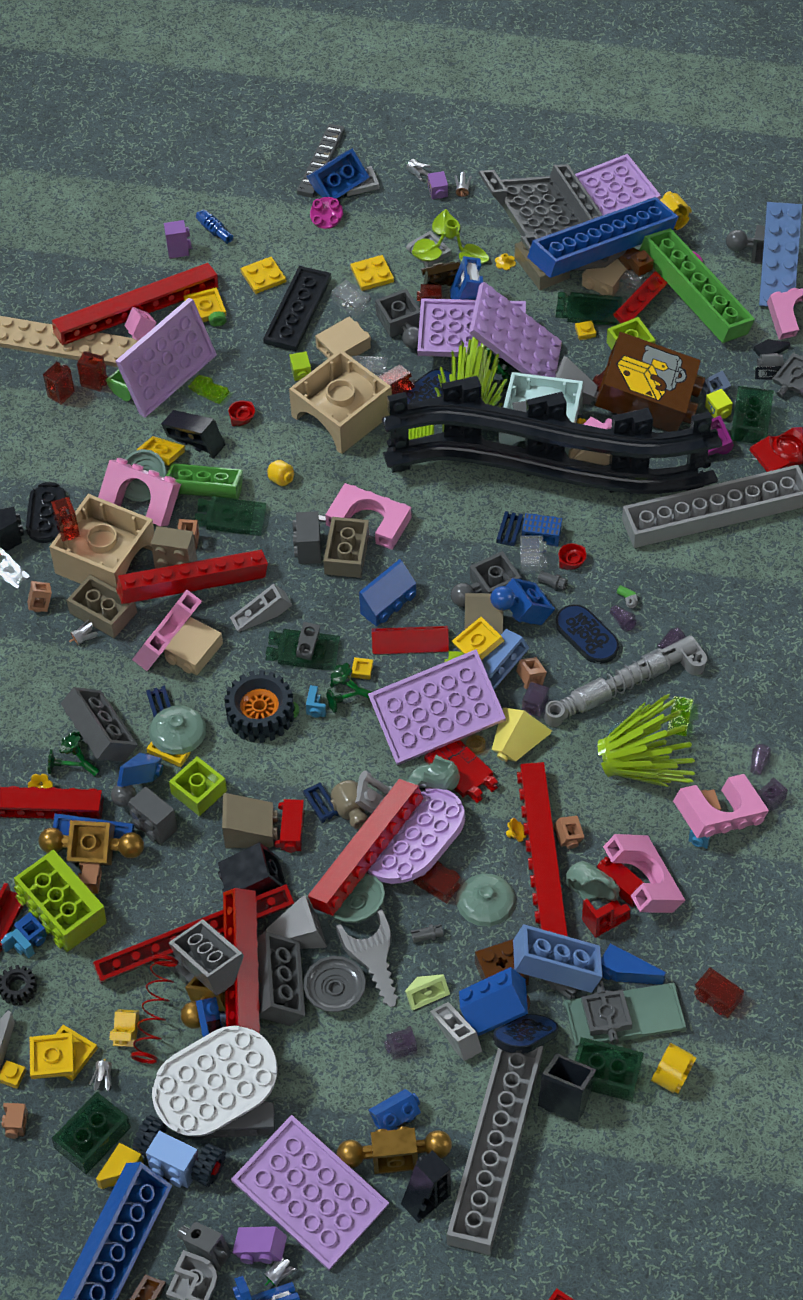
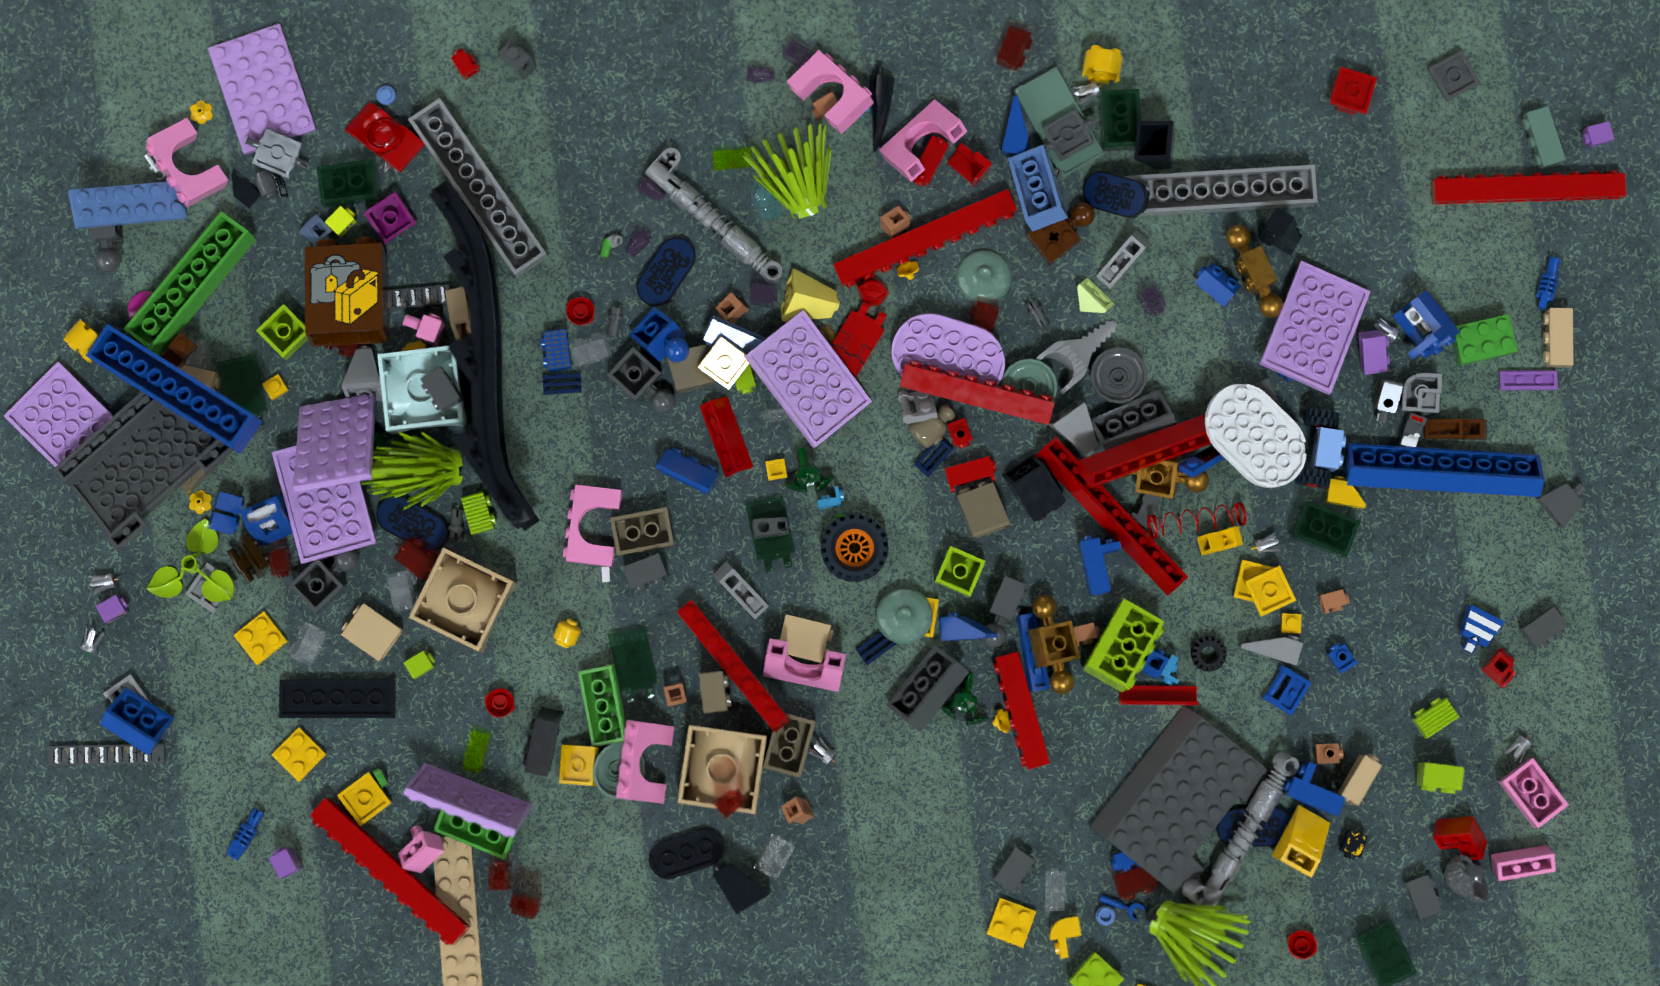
camera: 110 degrees left, 30 degrees up
(151, 901) = (1093, 563): none -> blue brick
(157, 1261) = (1412, 430): none -> dark grey leg
(208, 956) = (1147, 483): dark grey slope -> none
(326, 212) = (189, 717): dark pink dish -> none
(334, 828) = (959, 425): none -> red brick
(439, 775) = (879, 365): sand green piece -> none
(492, 272) = (222, 522): none -> blue piece
(494, 1001) = (1096, 229): blue slope -> none
(505, 797) = (873, 292): none -> red hat
(591, 882) = (942, 186): sand green piece -> none
(640, 298) = (226, 337): red panel -> none
(651, 1055) = (1090, 89): none -> flat silver piece
(702, 858) = (882, 91): none -> black piece

